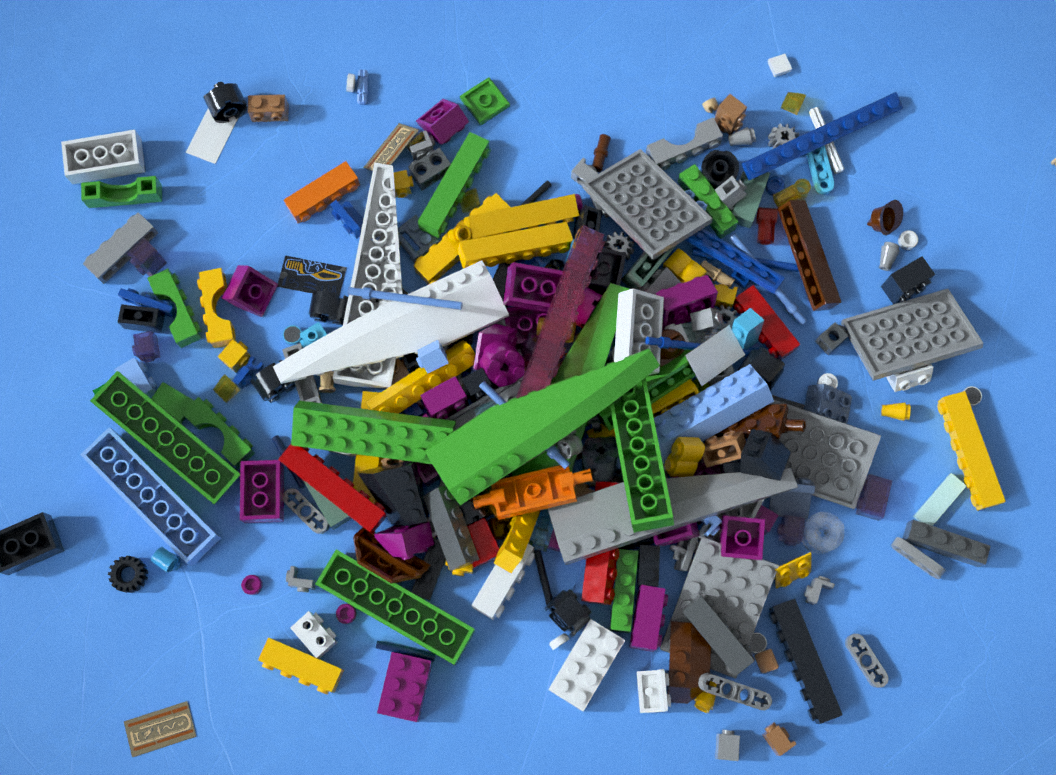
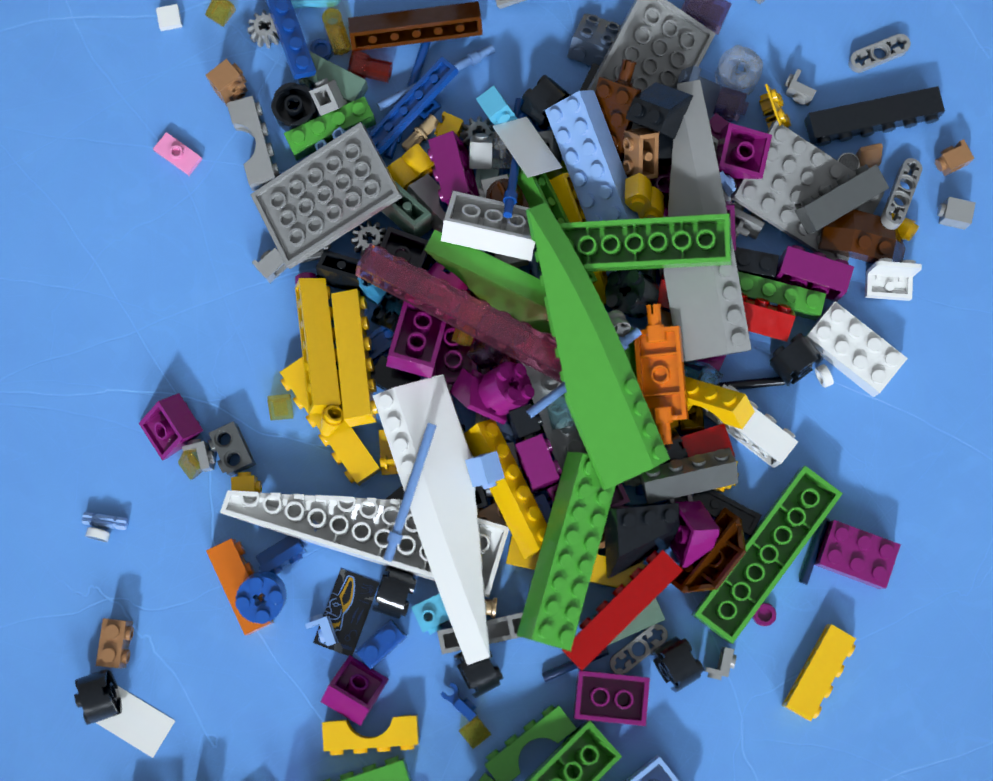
camera: 80 degrees left, 5 degrees up
(235, 355) = (436, 716): yellow brick -> none
(251, 584) = (717, 722): magenta tile -> none
(287, 304) = (381, 644): none -> blue brick
(292, 335) = (418, 643): tile -> none
(294, 541) = (677, 663): none -> black brick
(295, 262) = (327, 632): none -> light blue bracket
(311, 203) = (249, 591): none -> blue brick
(312, 636) = (788, 655): white brick -> none
(392, 146) = (195, 493): sticker -> none
(419, 237) = (315, 473): sand blue plate -> none
(453, 185) = (260, 422): bright green brick -> none
(484, 101) = (151, 372): bright green tile -> none
(542, 189) = (286, 327): black bar -> none
(601, 152) = (245, 242): reddish brown pin -> none
(665, 90) = (177, 154): none -> bright pink plate
(709, 104) = (205, 105): tan hinge -> none
(743, 137) = (254, 74): light grey cone -> none
(773, 332) = (507, 78): red brick -> none
(826, 343) = (520, 28): dark grey brick -> none
(828, 379) = (565, 35): white tile -> none

